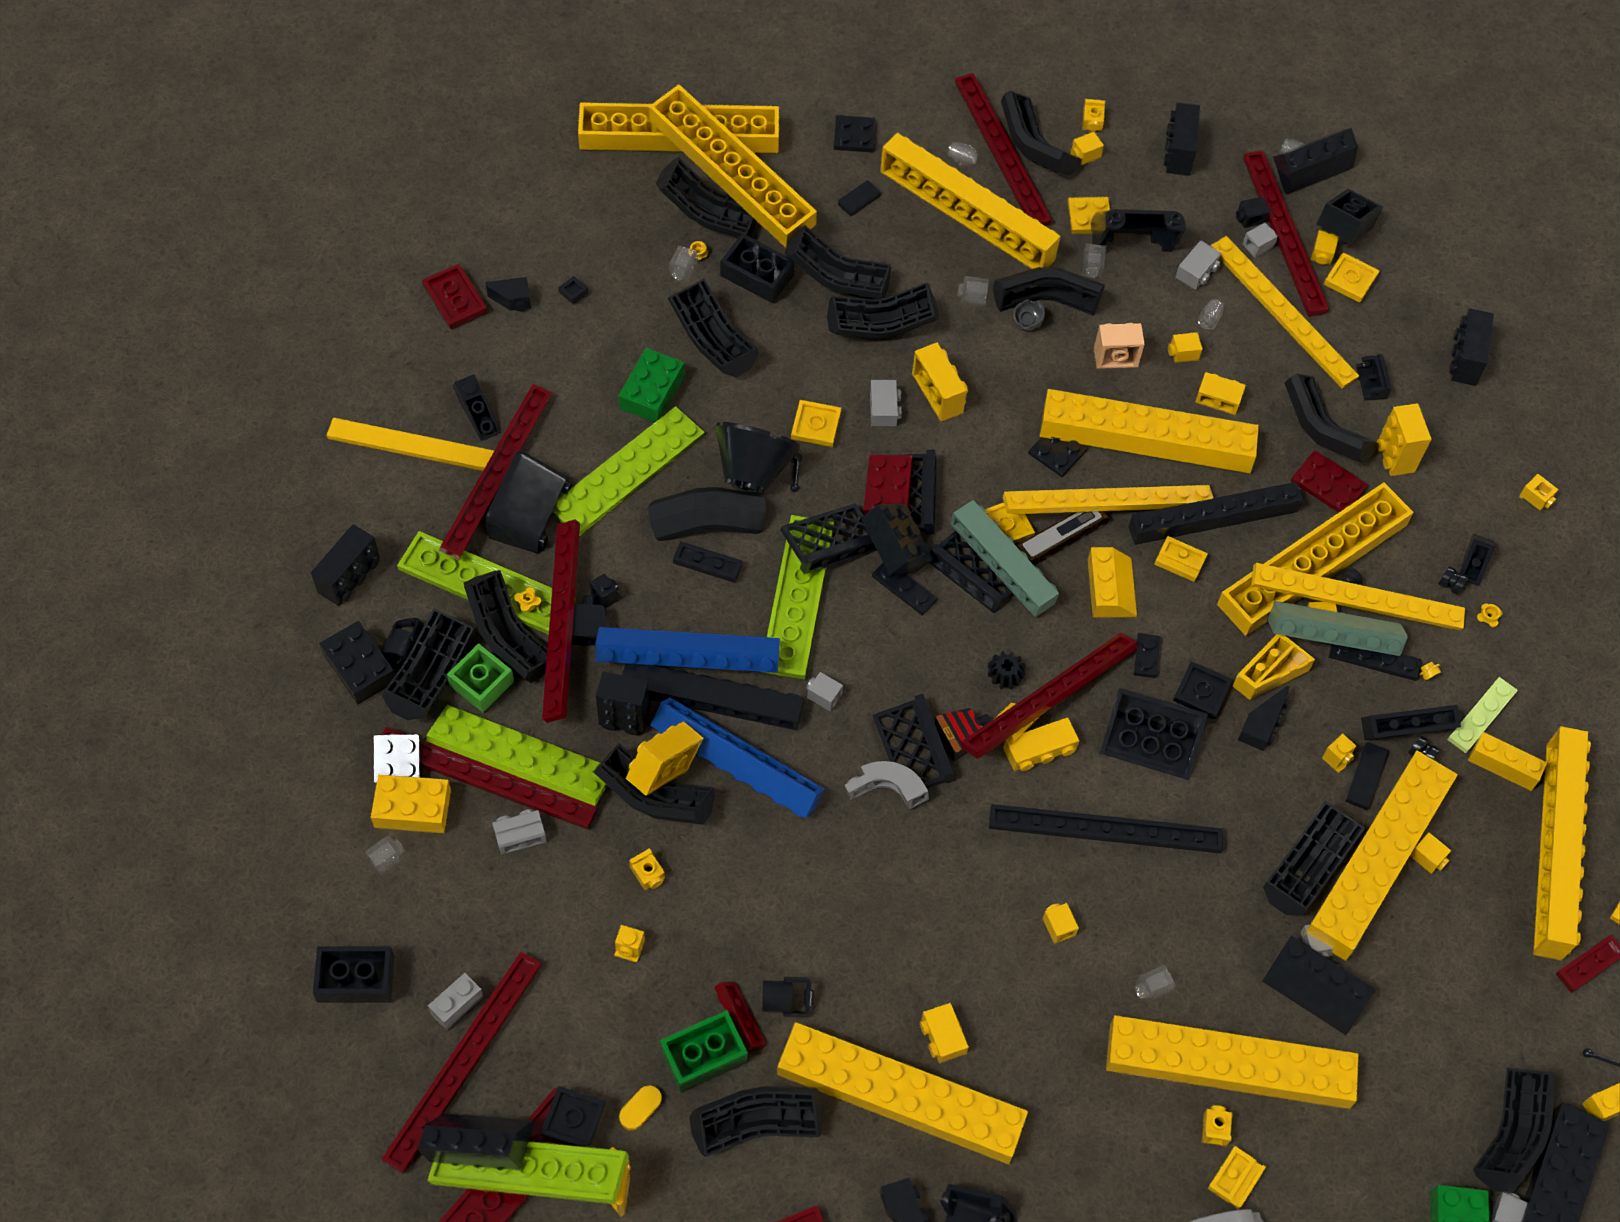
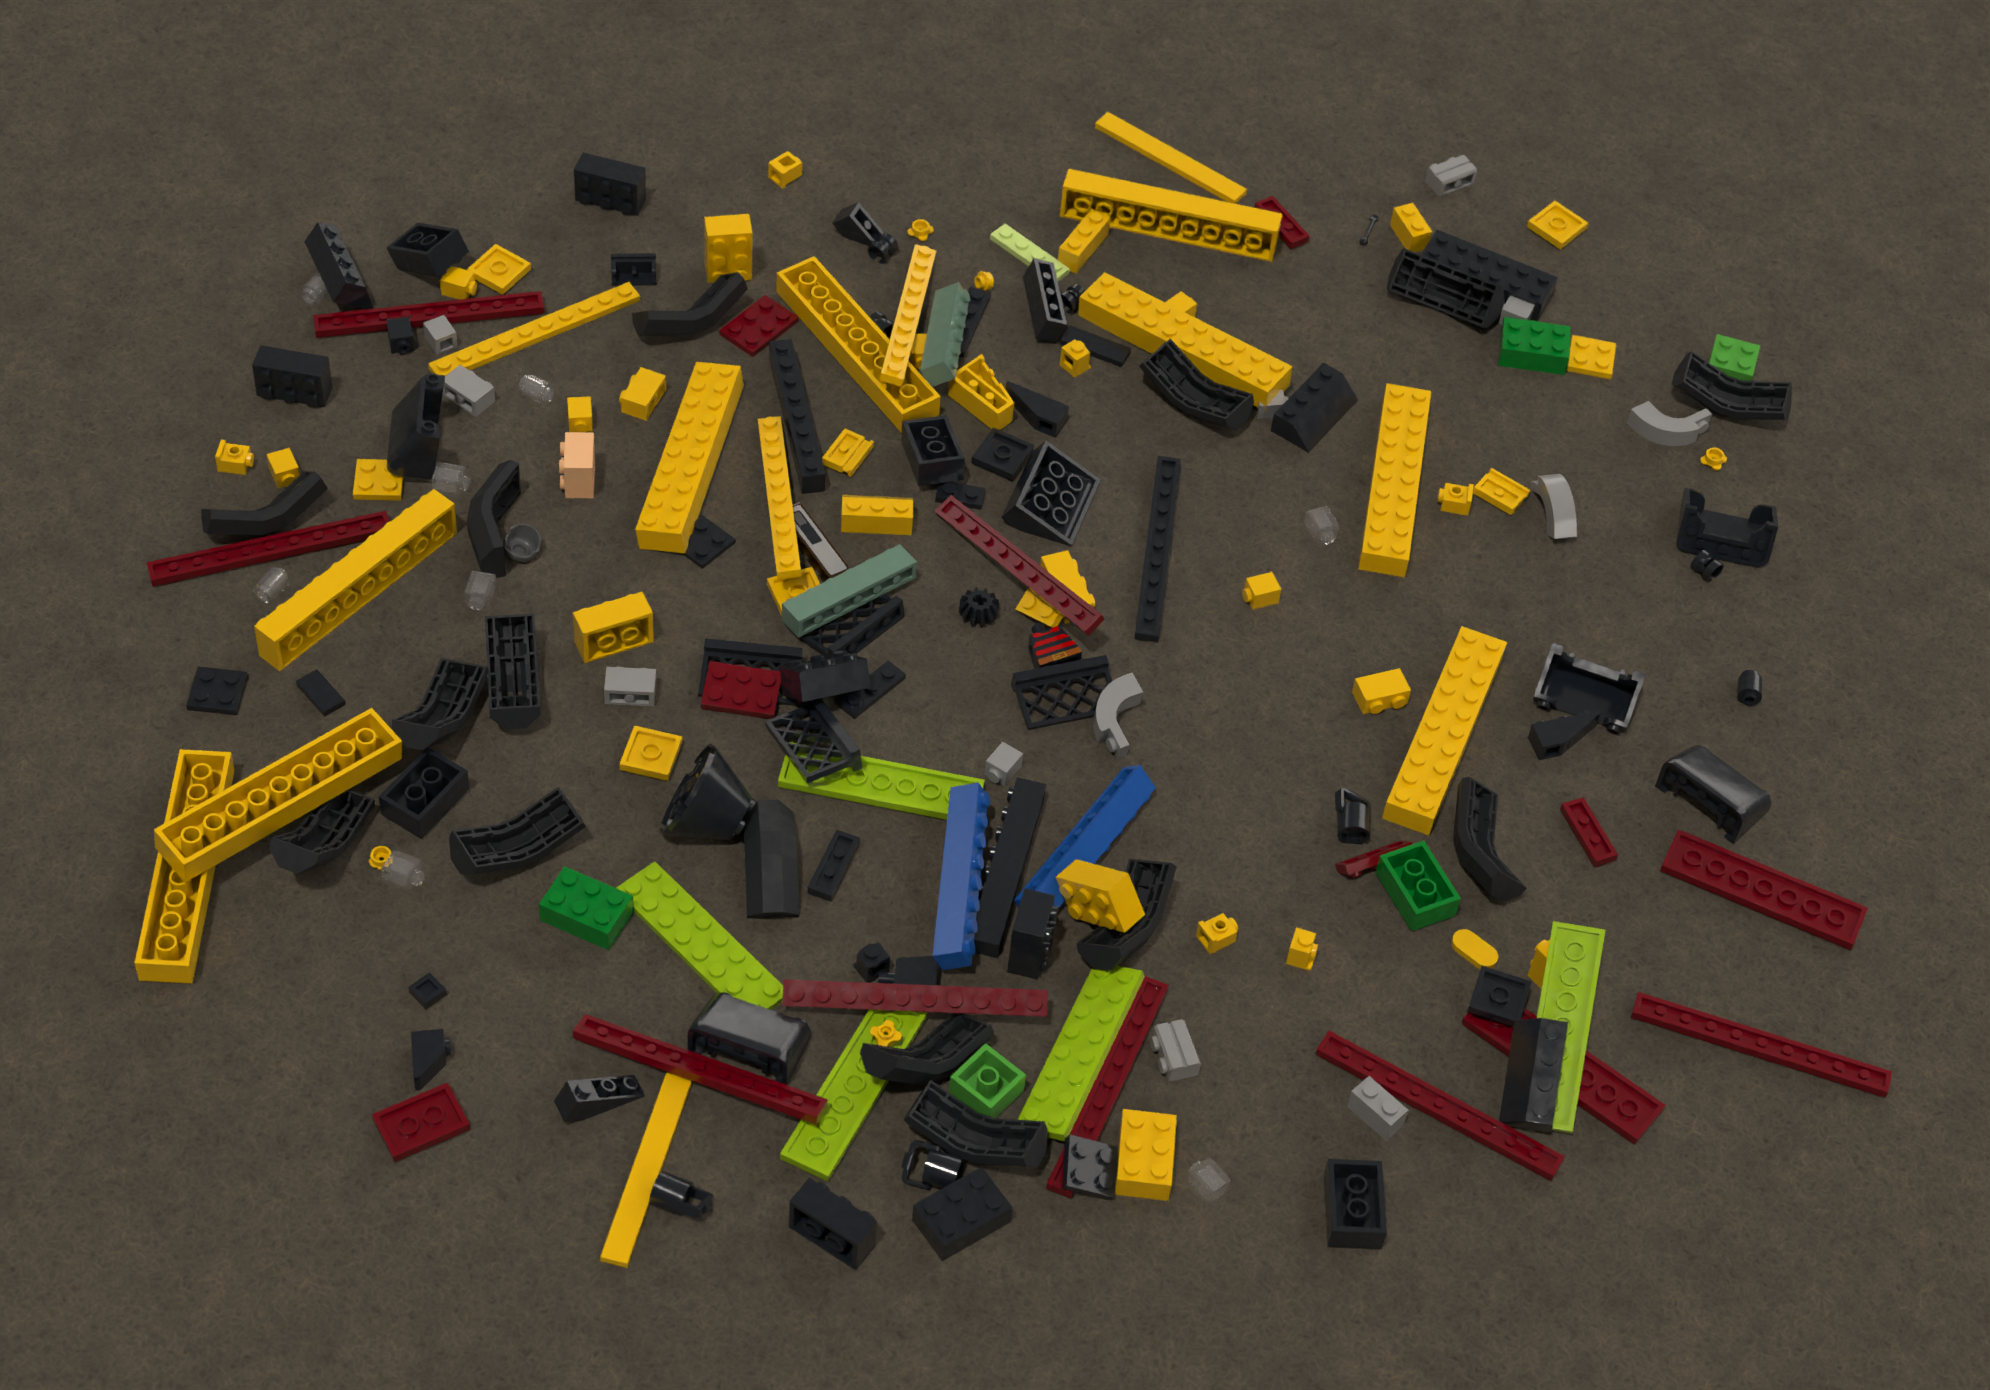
camera: 90 degrees left, 10 degrees down
(382, 462) = (674, 1193): none -> black piece
(1187, 623) = (932, 450): none -> black brick

